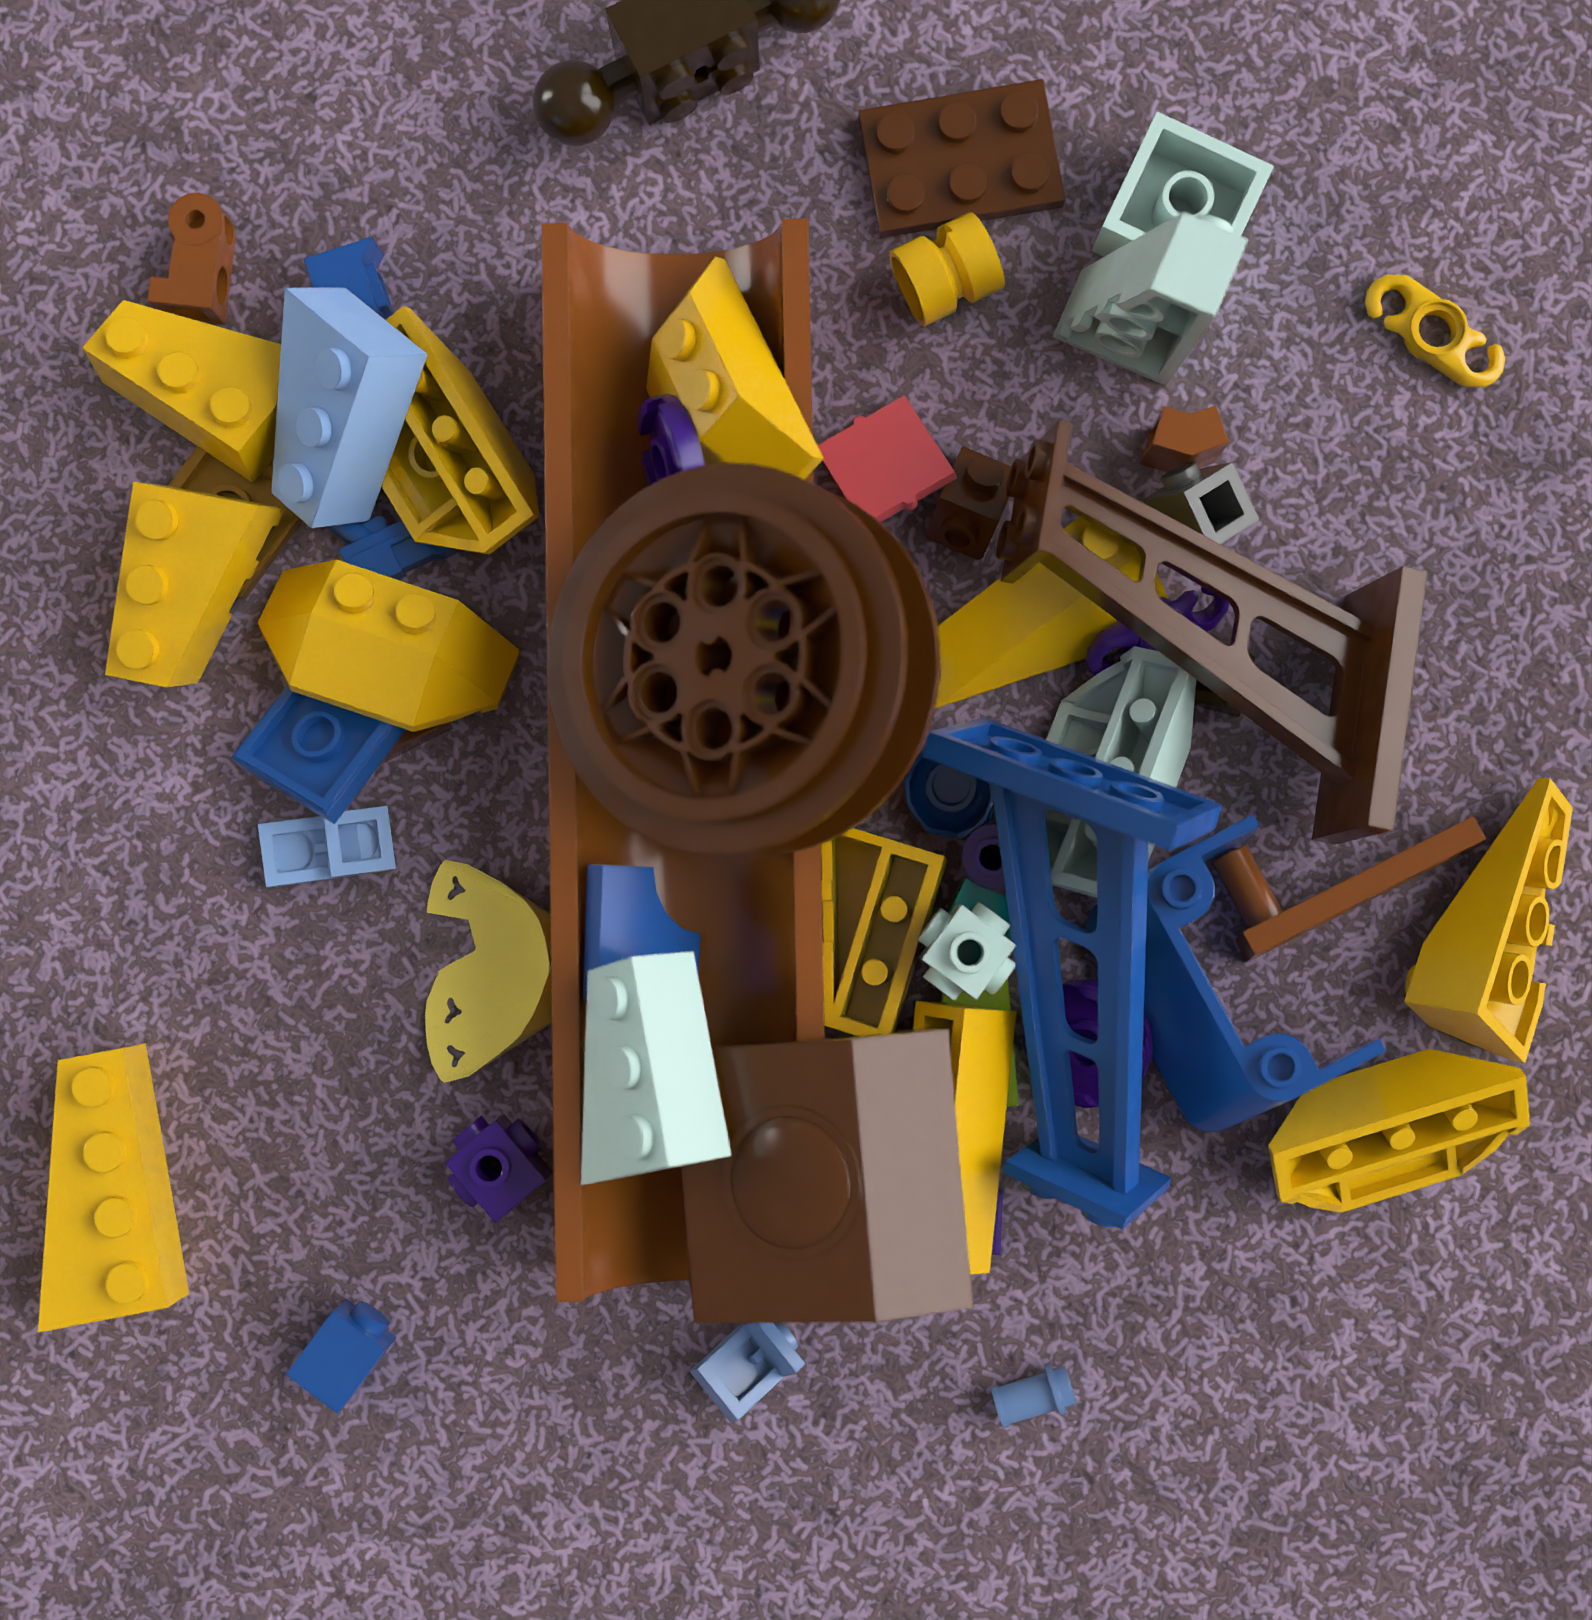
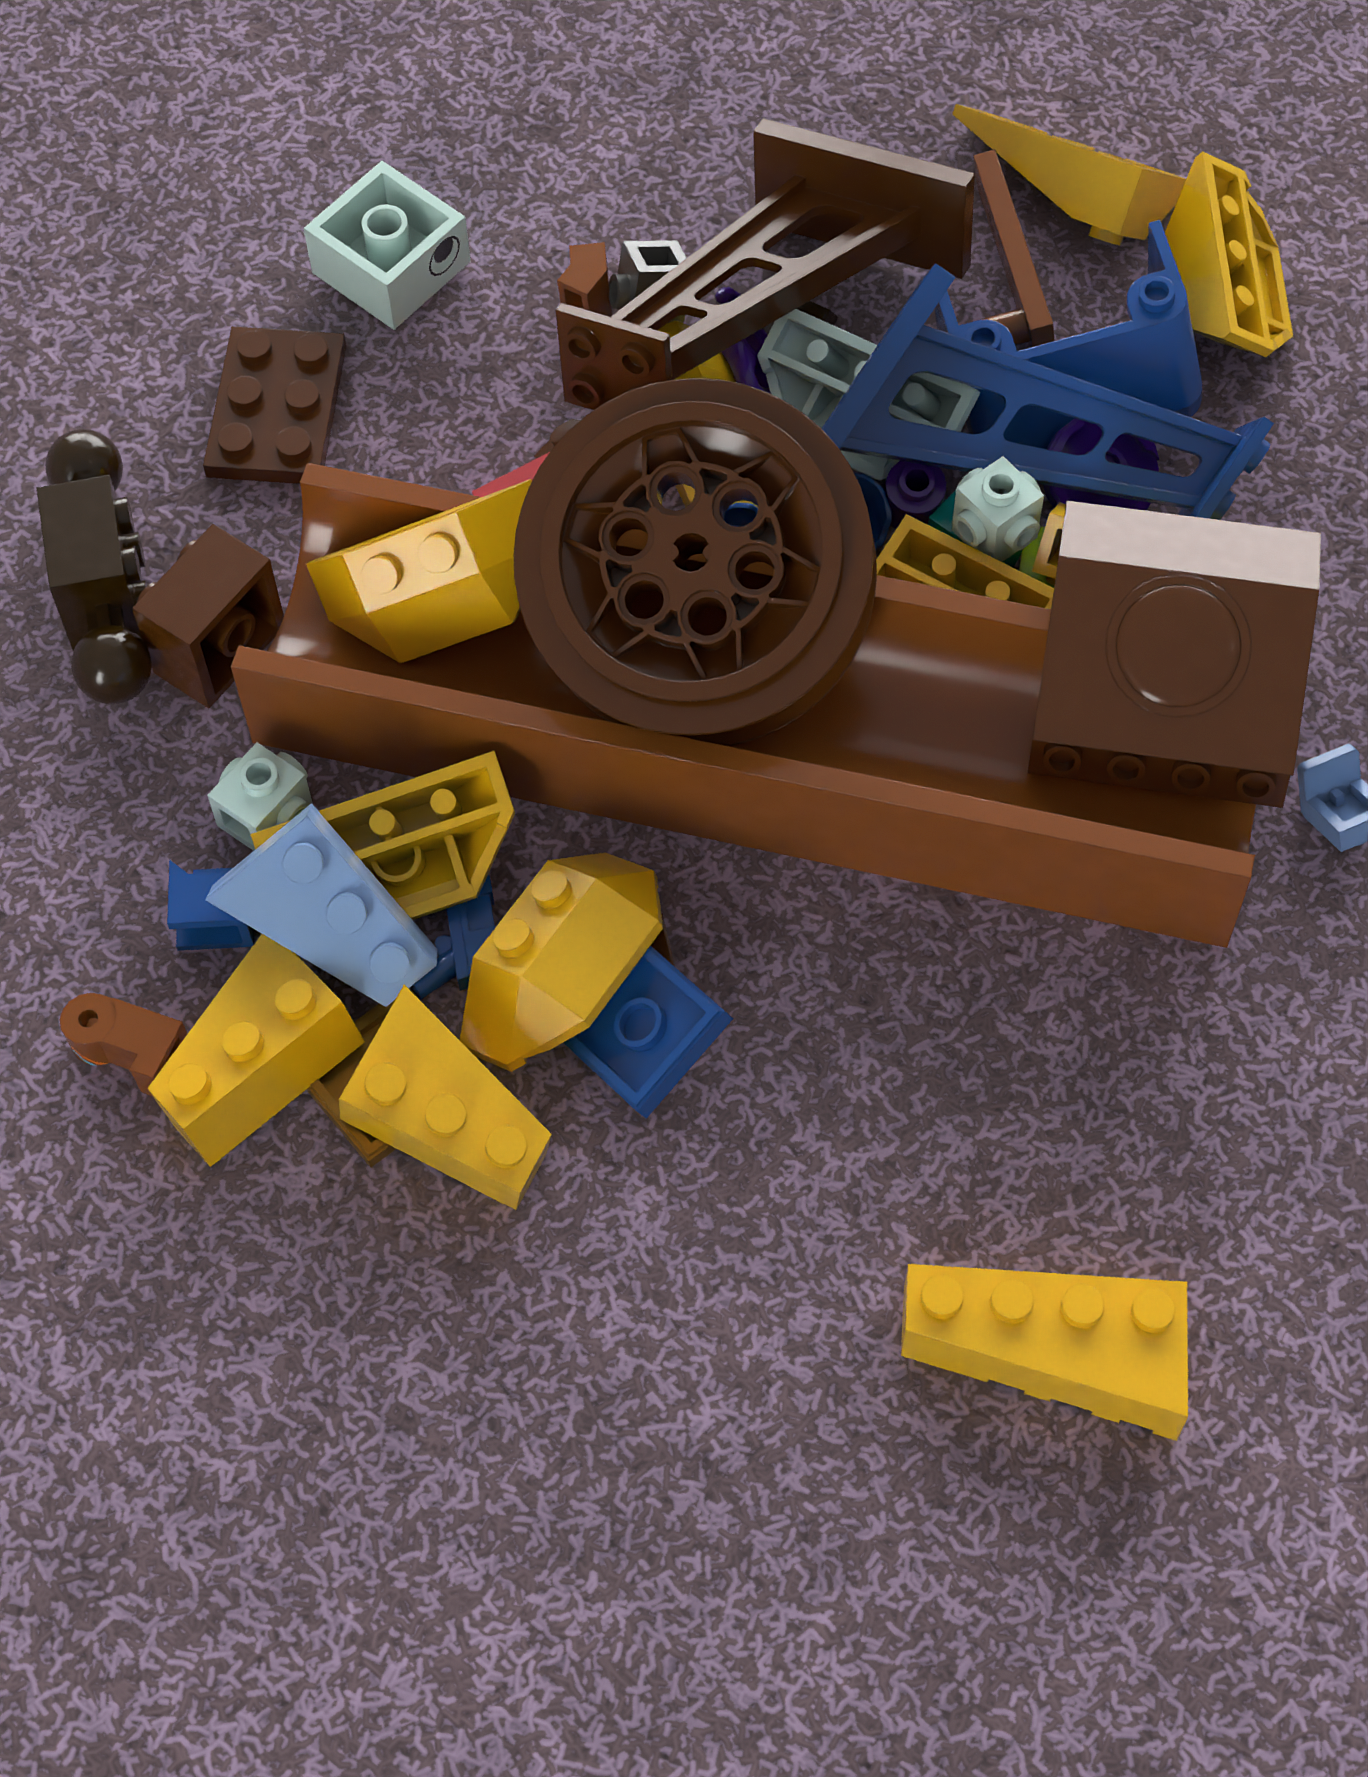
camera: 75 degrees left, 25 degrees down
(319, 850) = (749, 1066): light blue slope -> none
(342, 1353) = (1267, 1154): blue brick -> none
(473, 301) = (259, 793): none -> light aqua brick
(482, 1184) = (1107, 964): dark purple brick -> none
(498, 986) = (920, 935): light yellow piece -> none
(628, 919) = (916, 759): blue tile -> none
(648, 1070) = (1052, 744): light aqua wedge -> none
(653, 177) = (204, 609): none -> reddish brown brick
(671, 435) = (477, 628): dark purple tile -> none
(946, 269) = (374, 423): yellow wheel -> none
(1153, 295) = (467, 250): light aqua wedge -> none
(1422, 303) = (526, 117): yellow piece -> none

